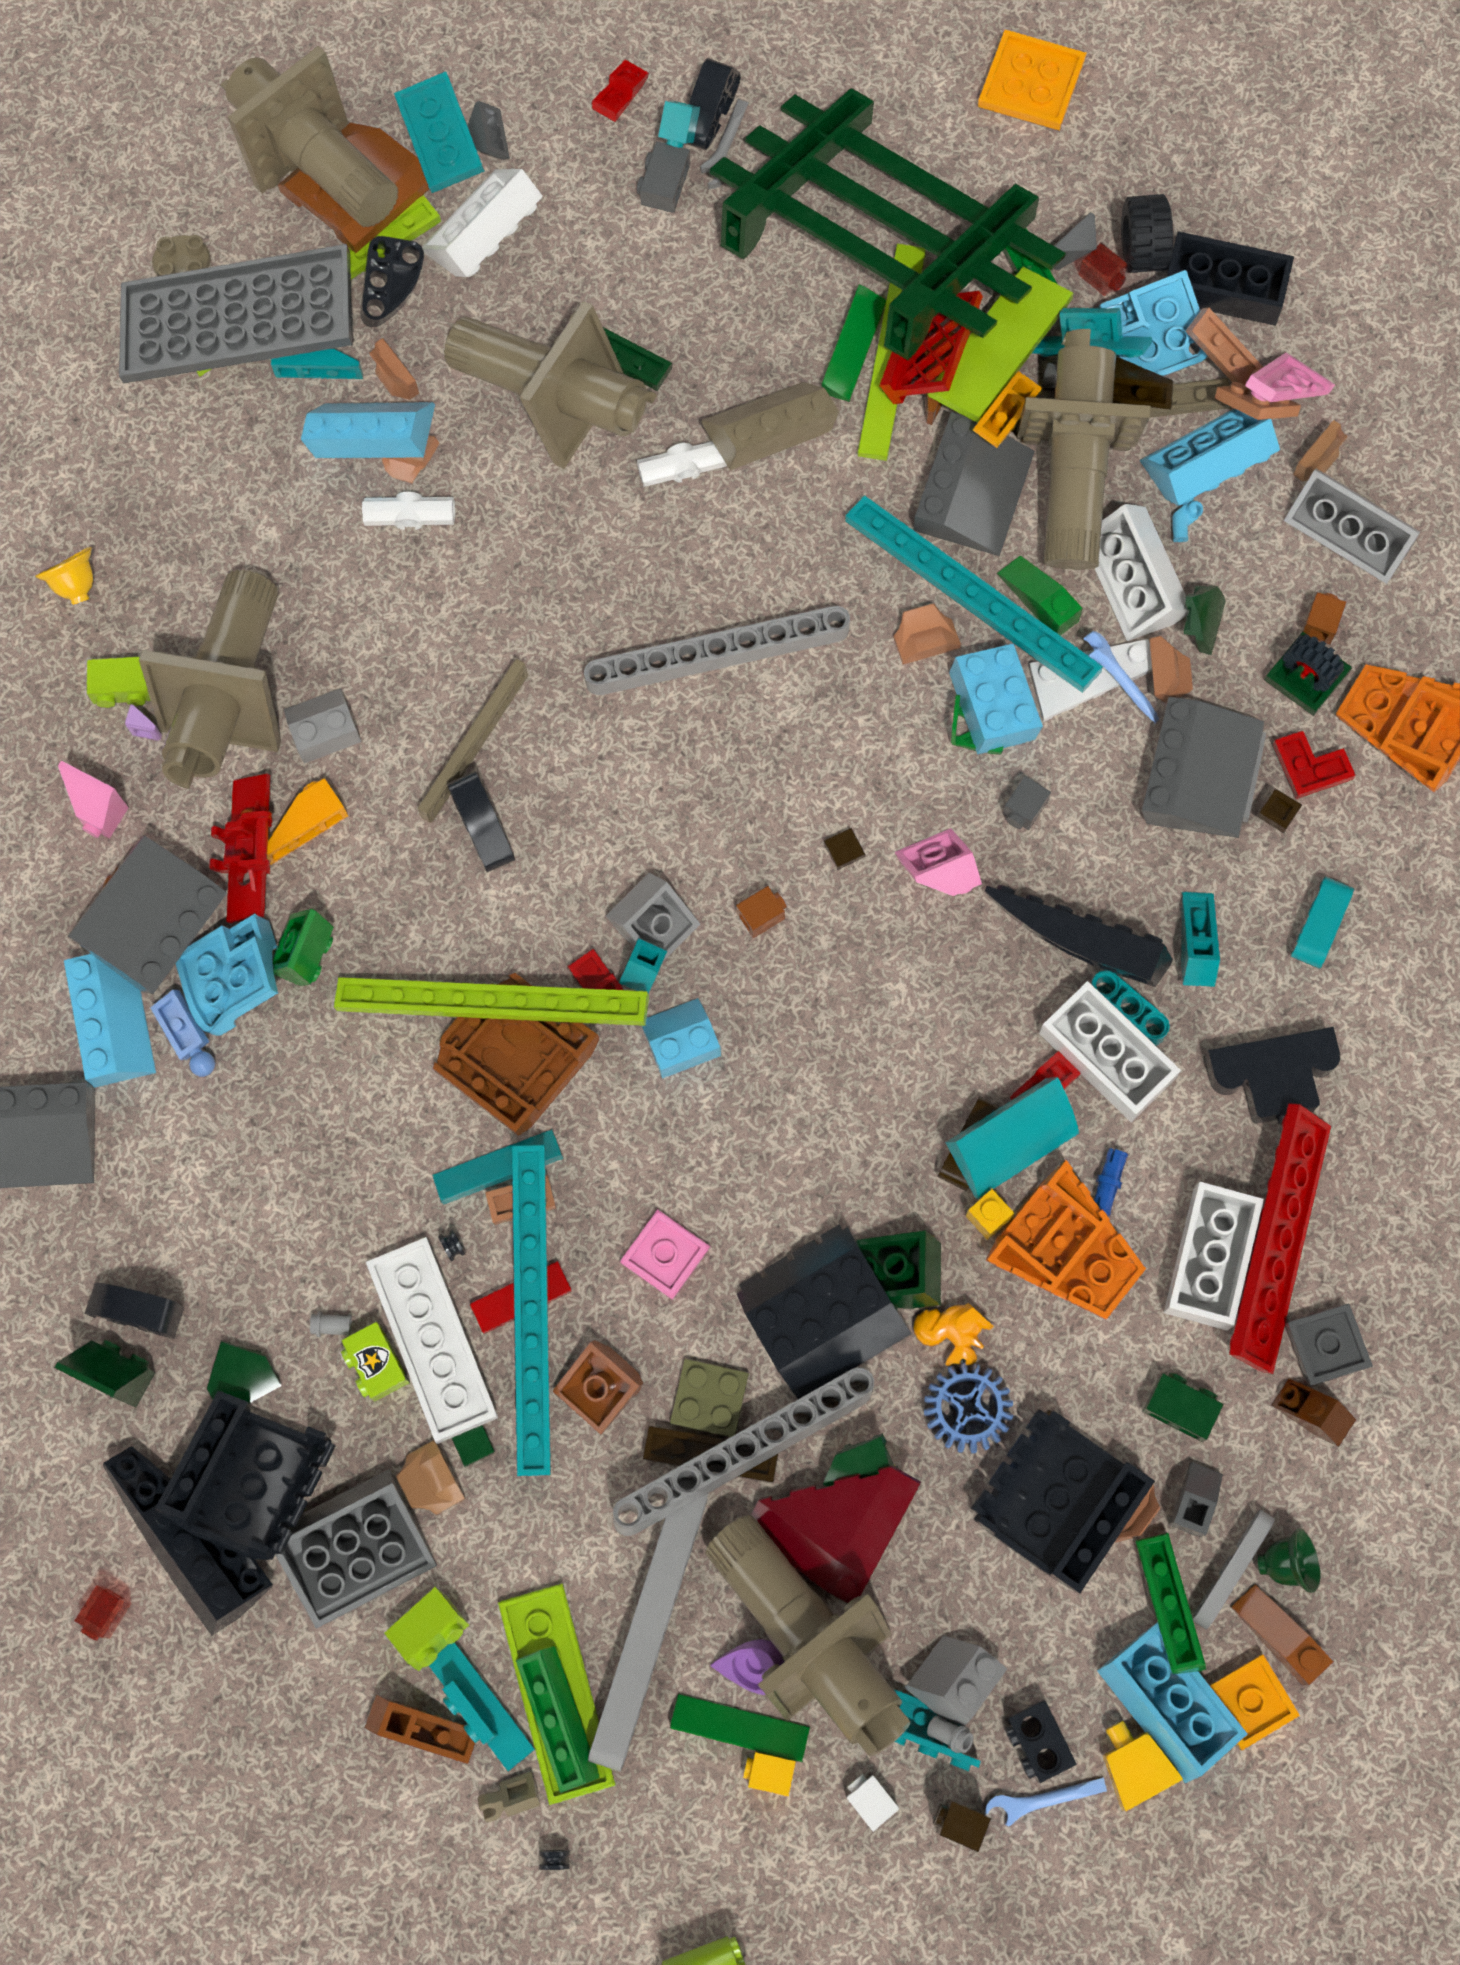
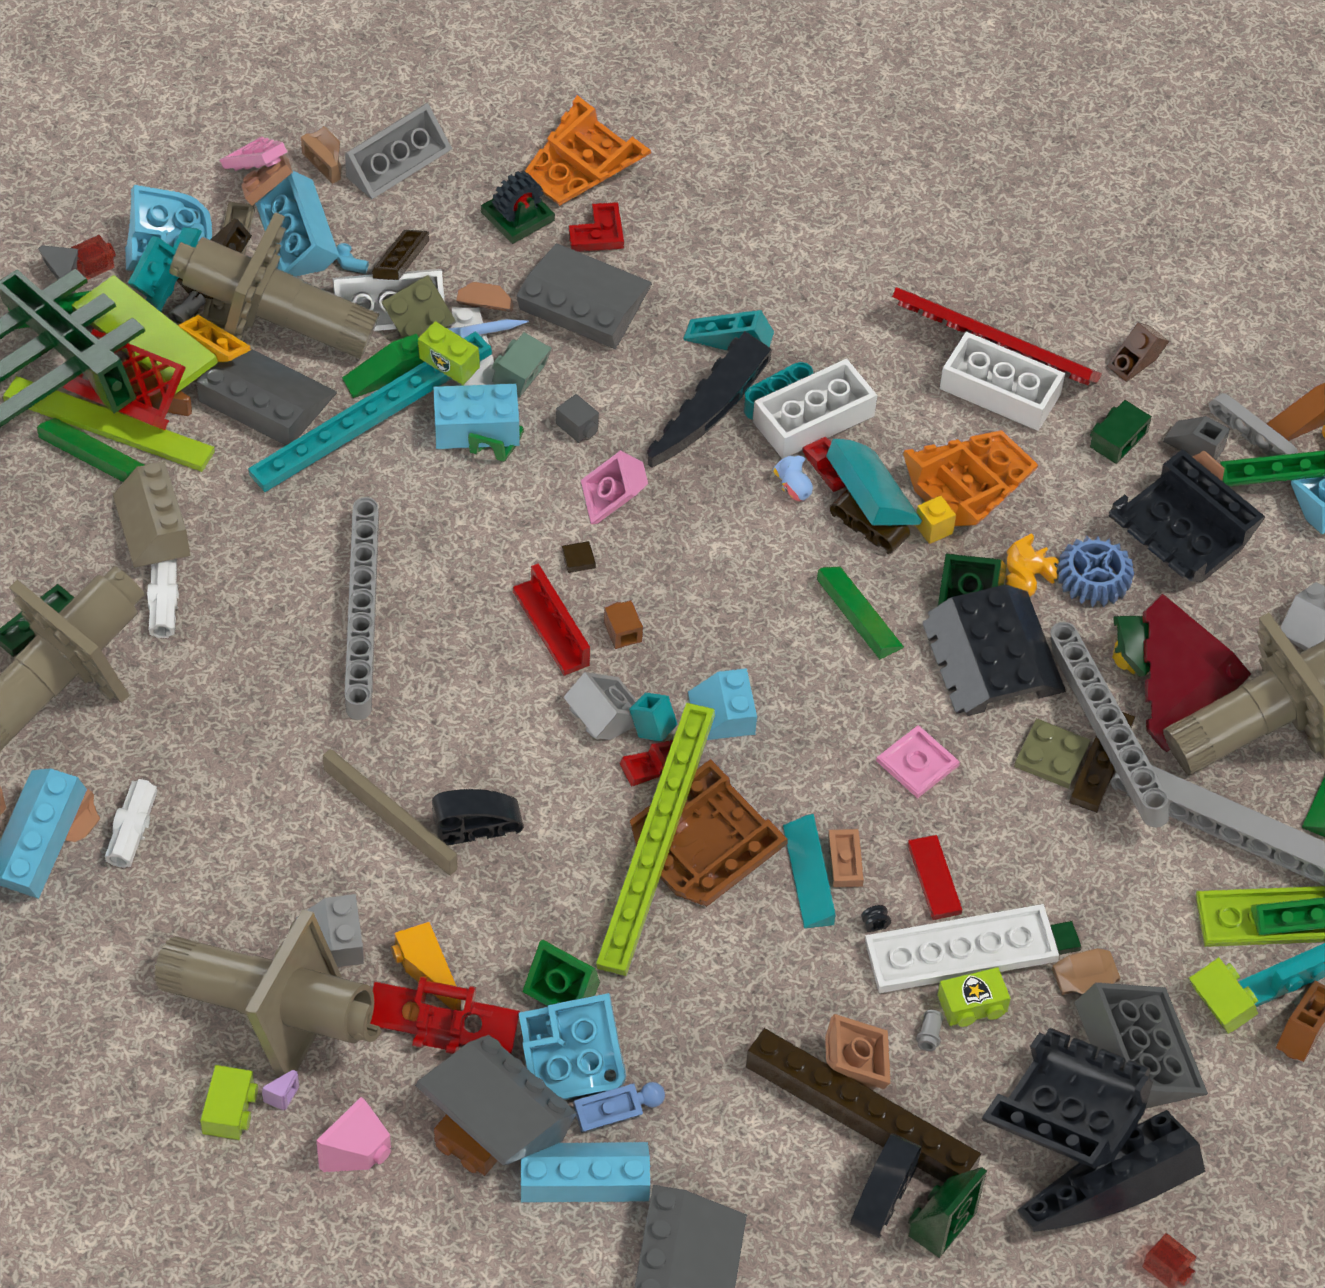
camera: 85 degrees left, 20 degrees down
(70, 577) = (93, 1127): yellow hat -> none
(218, 1271) = (857, 1105): none -> dark brown brick
(241, 1373) = (962, 1113): dark green slope -> none
(274, 1252) = (858, 1051): none -> nougat slope
(531, 1311) = (951, 861): teal plate -> none
(599, 1385) = (1029, 826): dark orange slope -> none
(747, 841) = (550, 618): none -> red fence
(748, 1663) = (1285, 762): medium lavender piece -> none
(848, 1156) = (858, 611): none -> green slope
(925, 634) = (396, 457): nougat slope -> none
(1003, 1051) = (793, 479): none -> light blue animal
(1051, 643) = (449, 353): none -> lime brick
(1081, 726) = (521, 362): none -> sand green brick
(1109, 1179) = (918, 436): blue pin -> none
(1120, 604) = (418, 308): none -> olive plate
(1147, 233) = (77, 210): black tyre -> none
(1191, 564) = (400, 255): none -> dark brown tile
(1204, 616) = (447, 262): dark green slope -> none
(1223, 347) = (208, 189): nougat plate -> none
(1233, 276) = (147, 159): black brick -> none
(1275, 1071) = (858, 310): black brick -> none
(1279, 810) = (634, 255): dark brown tile -> none
(1292, 1562) = (1255, 389): dark green hat -> none
(1323, 922) = (737, 252): teal beam -> none
(1324, 617) = (472, 189): dark orange brick -> none
(1328, 1345) = (1086, 332): dark grey plate -> none

